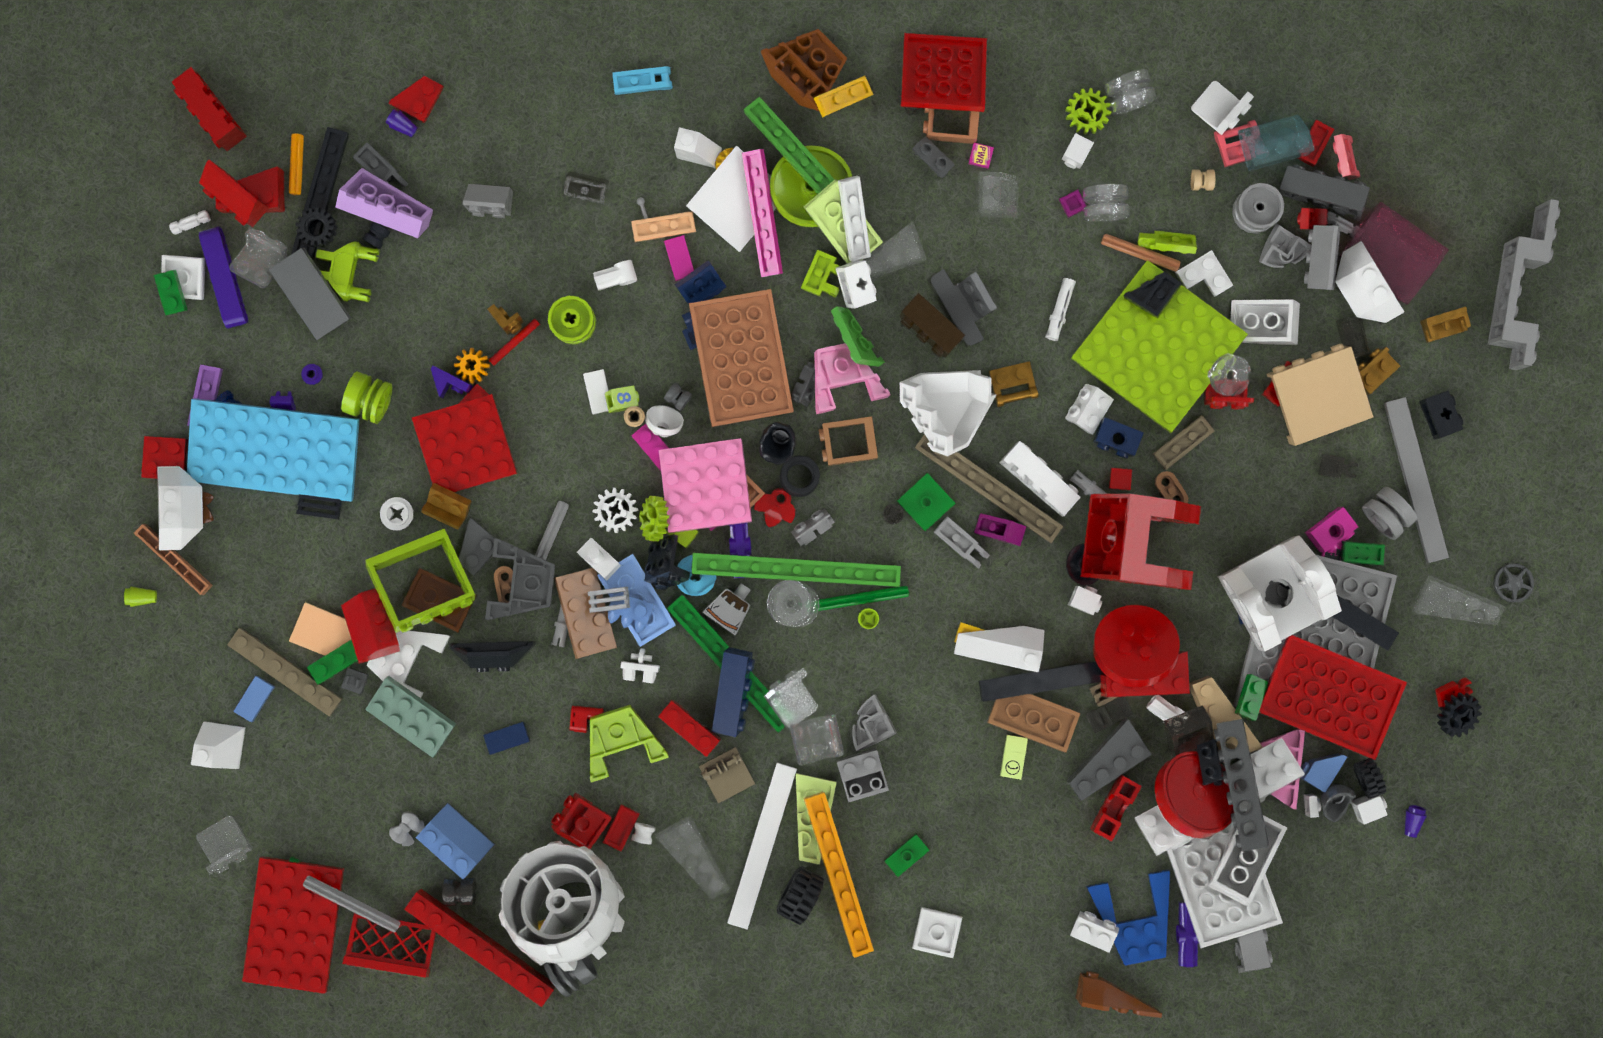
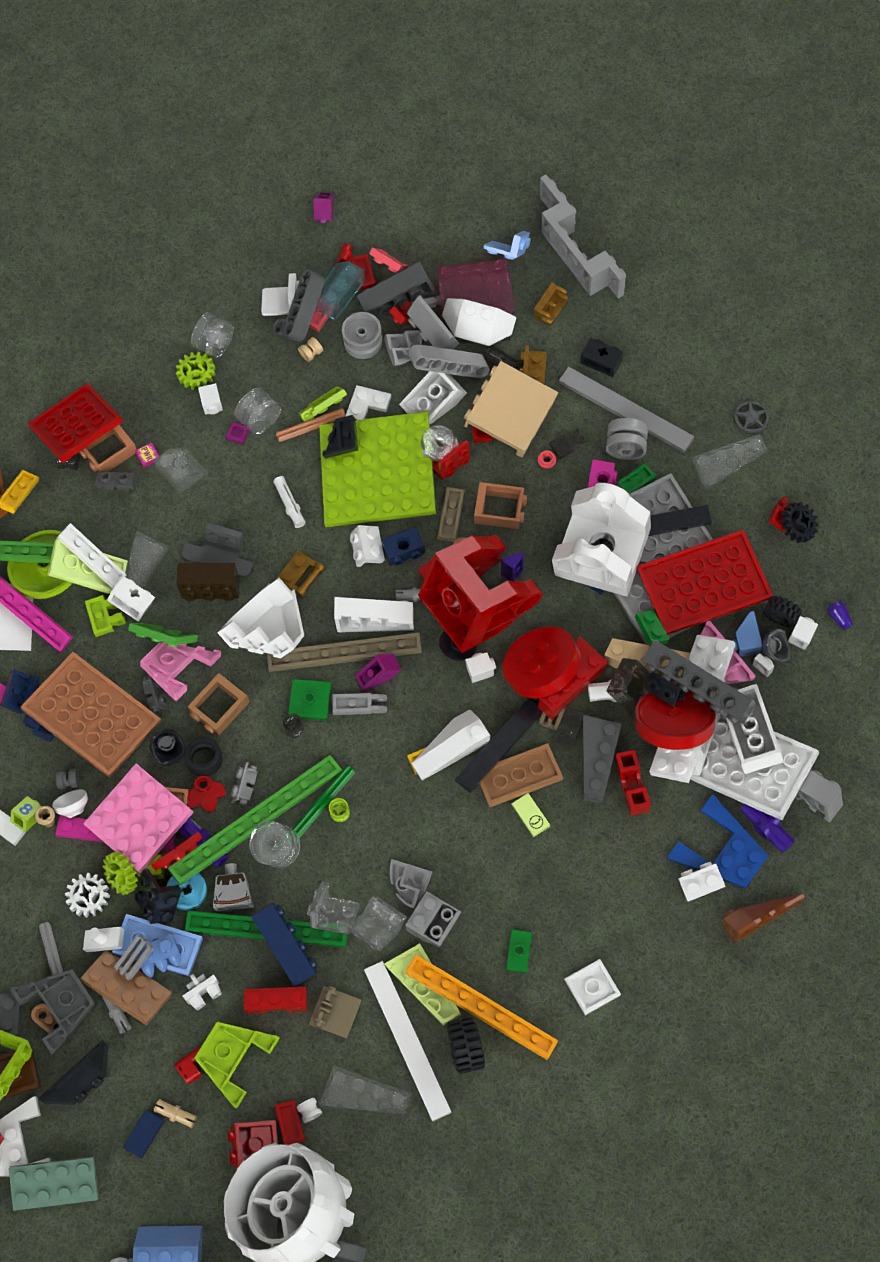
camera: 35 degrees left, 20 degrees down
(542, 744) = (175, 1113): none -> tan pin
(711, 543) = (177, 852): none -> red plate
(1187, 540) = (512, 566): none -> dark purple slope
(1229, 138) = (302, 308): none -> dark grey beam
(1252, 485) = (499, 491): none -> nougat window
(1306, 306) = (448, 361): none -> light grey beam
(1311, 112) = (344, 254): none -> red piece
(1313, 465) = (549, 455): none -> coral plate
(1339, 44) = (324, 206): none -> magenta slope
(1457, 238) = (520, 243): none -> light blue bracket

